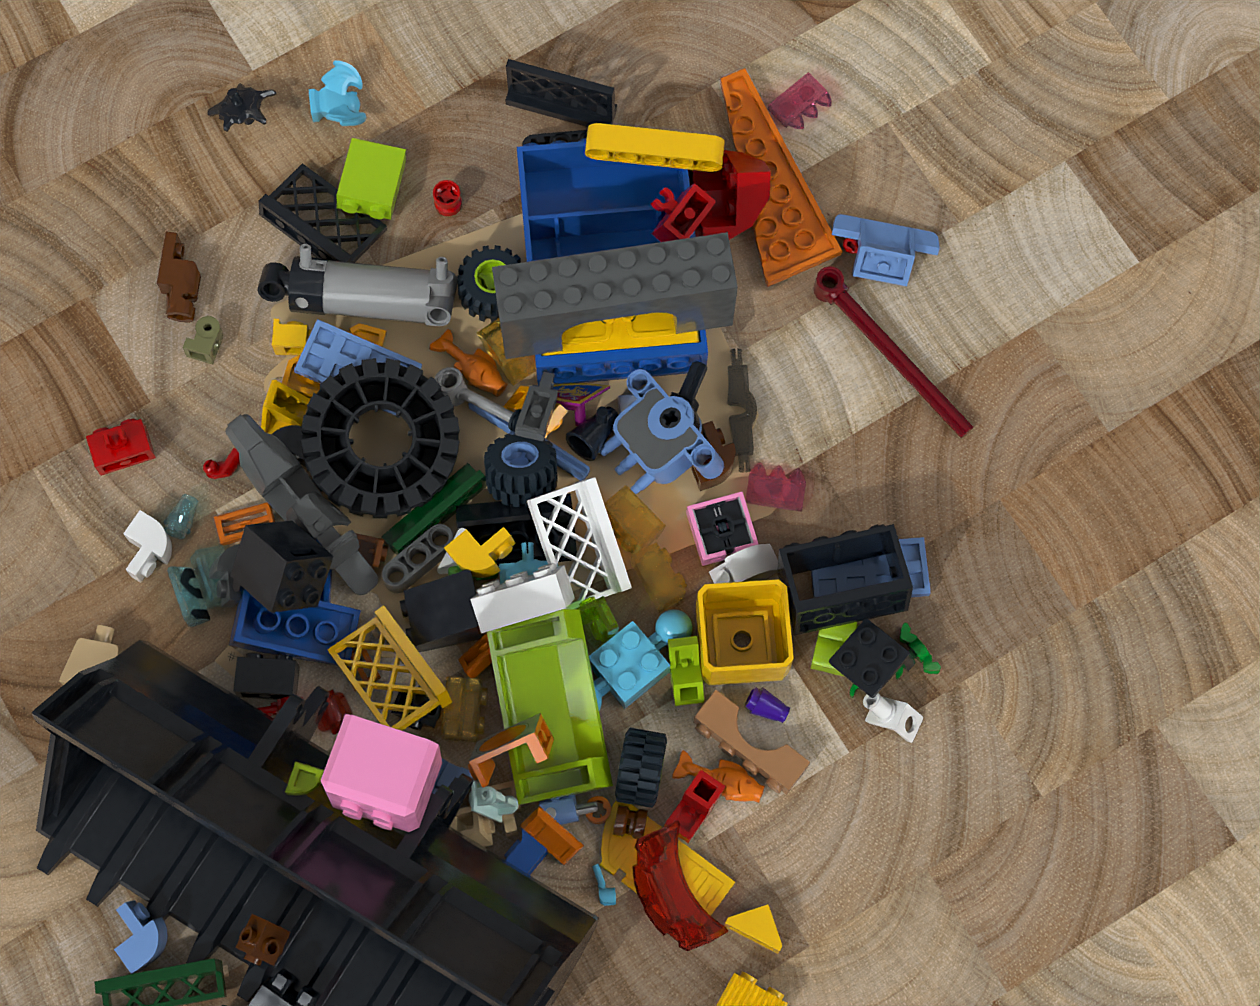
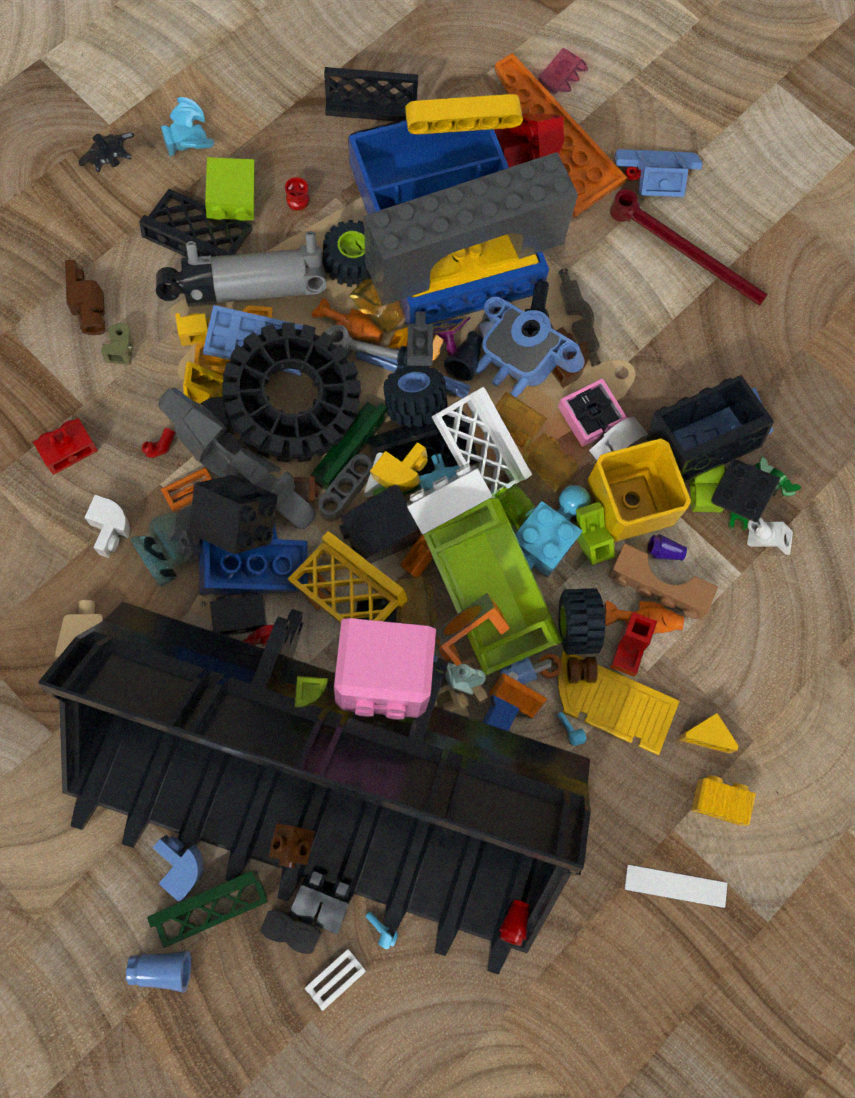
camera: 20 degrees left, 0 degrees up
(180, 519) = (132, 495): clear light blue cone -> none
(334, 713) = (309, 633): clear red head -> none
(666, 893) = (628, 725): clear red windscreen -> none
(681, 214) = (506, 153): red brick -> none
(776, 489) = (625, 374): clear pink plate -> none

